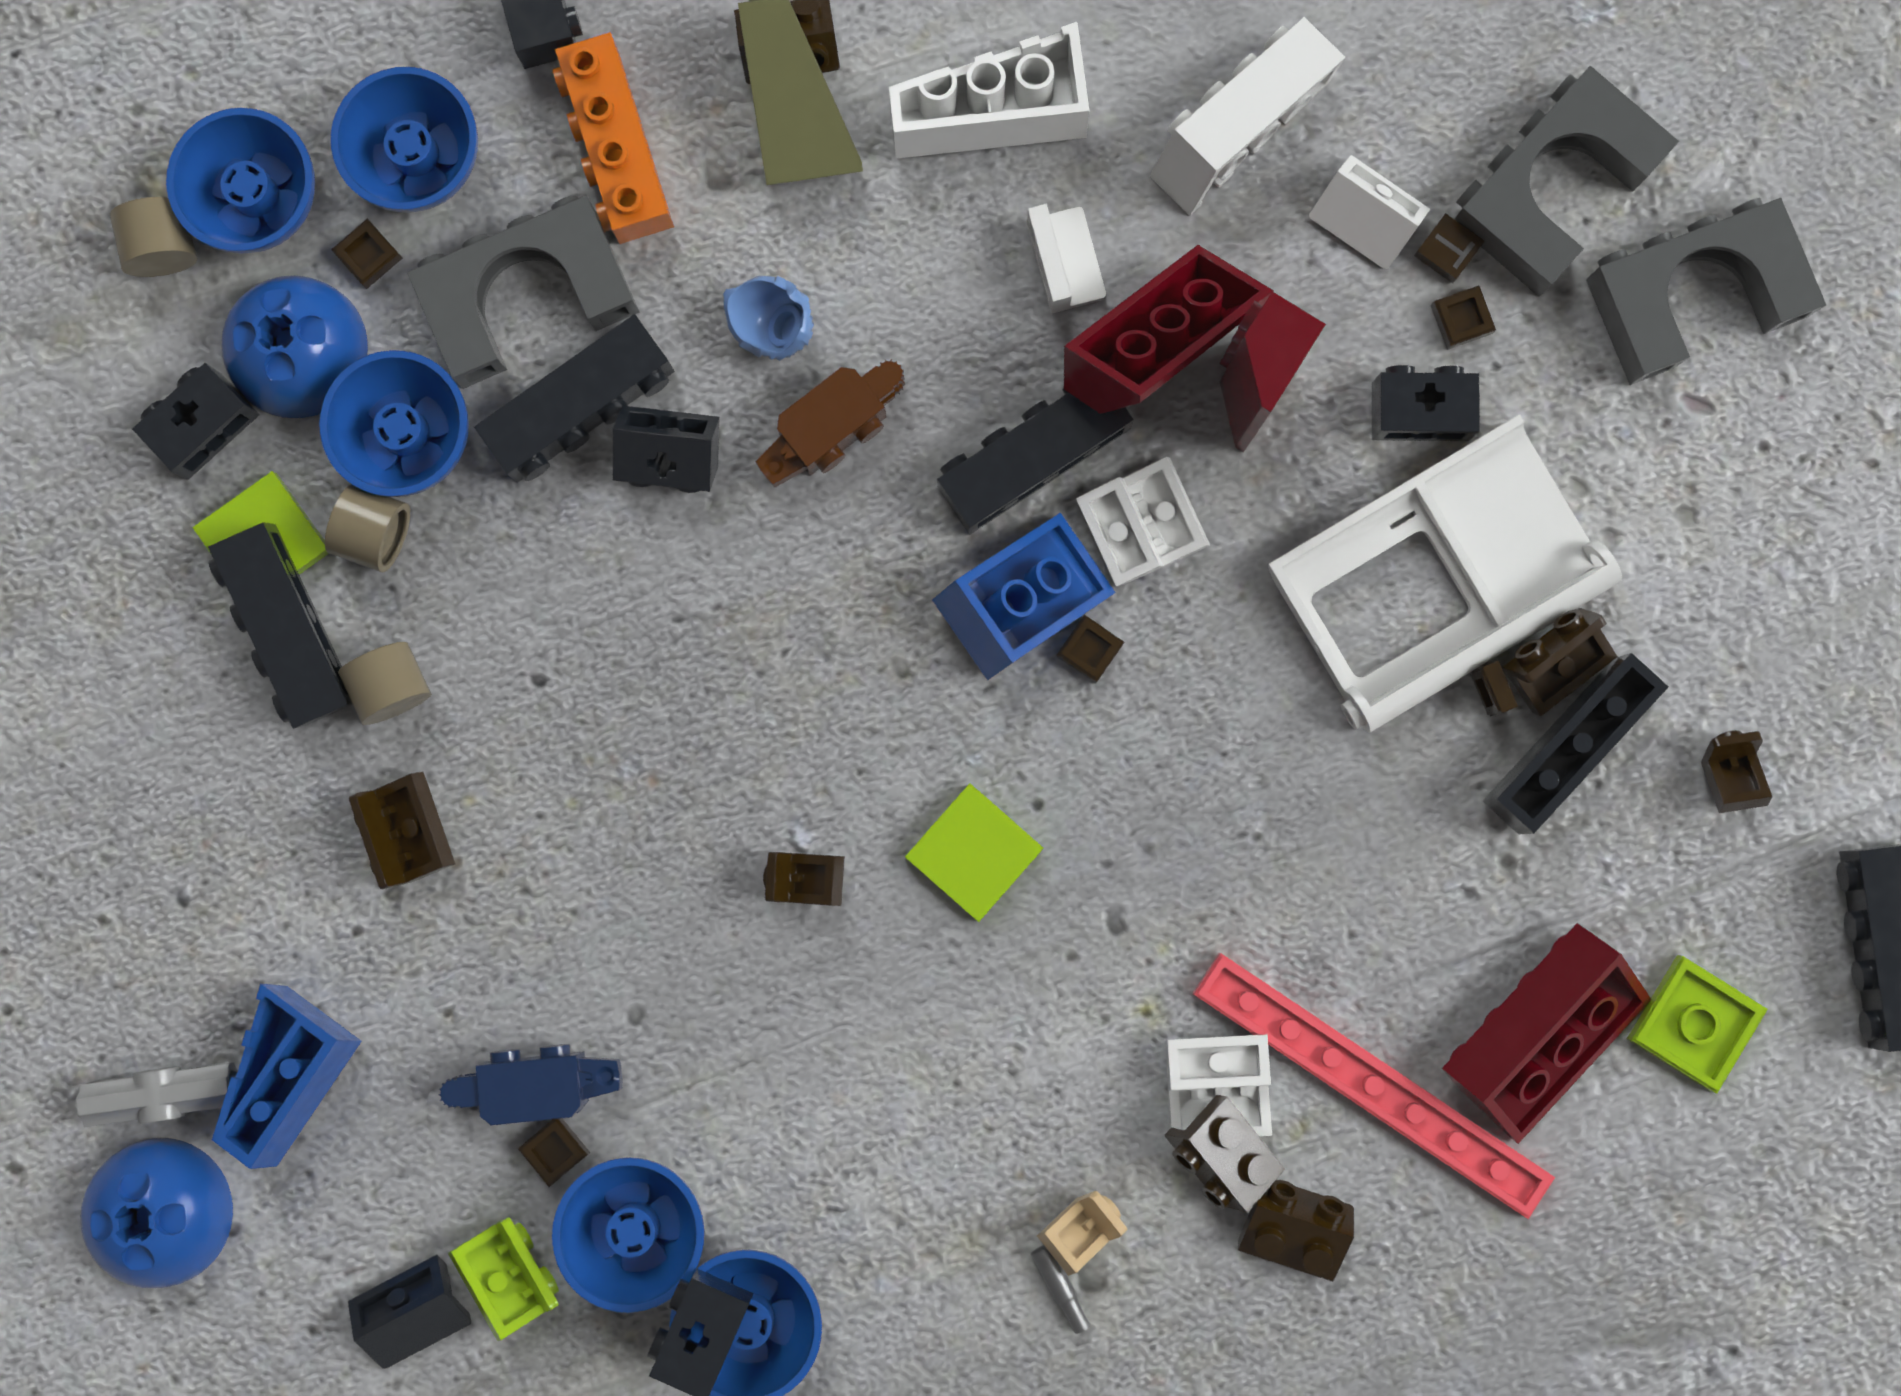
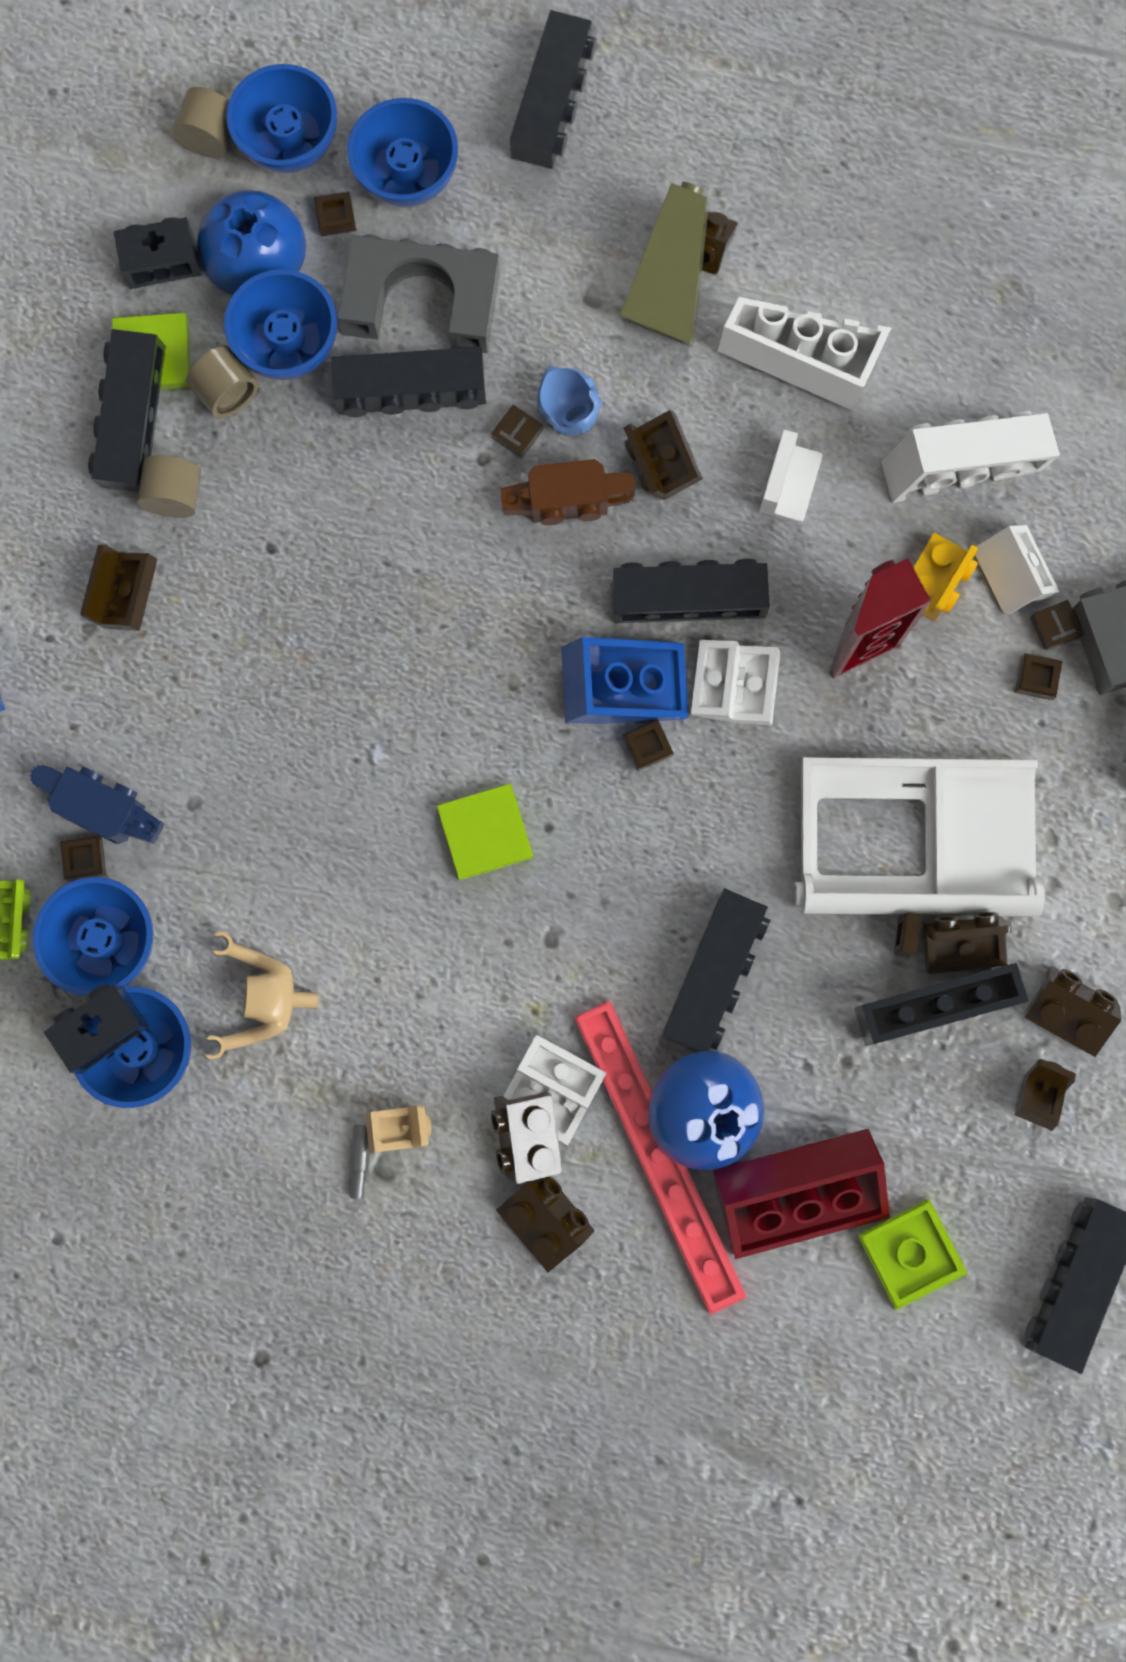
camera: 30 degrees right, 5 degrees down
(613, 138) = (539, 231): orange brick -> none
(665, 449) = (447, 445): black brick -> none
(730, 383) = (517, 431): none -> dark brown tile
(804, 878) = (360, 778): dark brown bracket -> none
(853, 1179) = (266, 998): none -> tan piece
(909, 316) = (662, 456): none -> dark brown bracket
(1158, 330) = (815, 551): dark red slope -> none
(1290, 262) = (940, 571): none -> yellow bracket
(1315, 855) = (715, 971): none -> black brick
(1399, 1010) = (691, 1103): none -> blue piece
(1402, 419) = (956, 712): black brick -> none
(1716, 661) = (1074, 1011): none -> dark brown bracket

